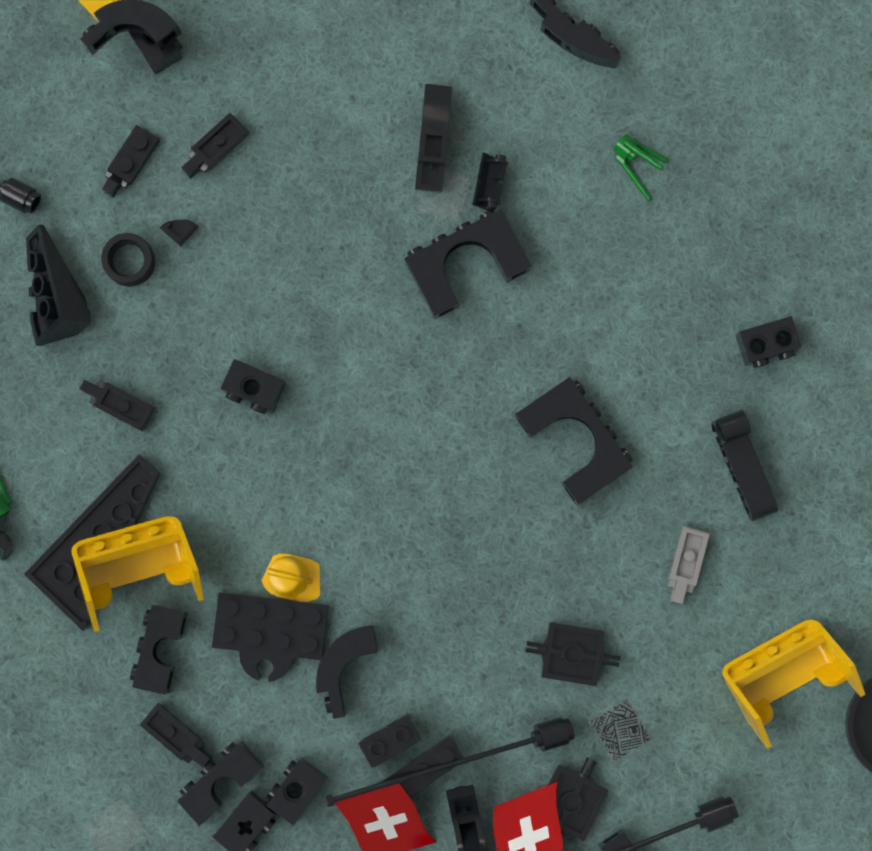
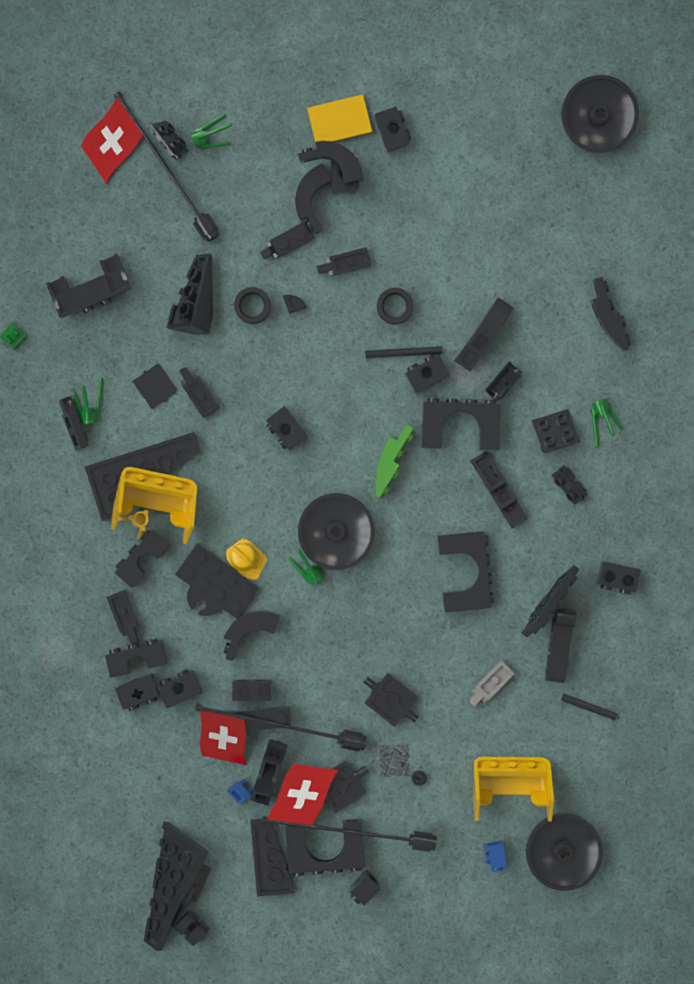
camera: 30 degrees right, 5 degrees up
(60, 425) = (154, 386): none -> black piece
(119, 76) = (308, 186): none -> black arch
(126, 602) = (138, 520): none -> yellow plant
(308, 144) = (394, 291): none -> black tyre
(347, 215) = (403, 352): none -> black bar
(385, 479) = (336, 531): none -> black dish
(385, 549) = (312, 573): none -> green plant
(389, 239) = (420, 383): none -> black brick
(405, 364) = (387, 468): none -> bright green slope
(559, 317) = (499, 489): none -> black slope
(588, 207) = (555, 431): none -> black hinge
(653, 269) = (574, 492): none -> black hinge
(664, 728) = (422, 775): none -> black hinge
(703, 417) = (548, 604): none -> black plate
(818, 780) = (495, 855): none -> blue brick
(826, 524) = (588, 706): none -> black bar

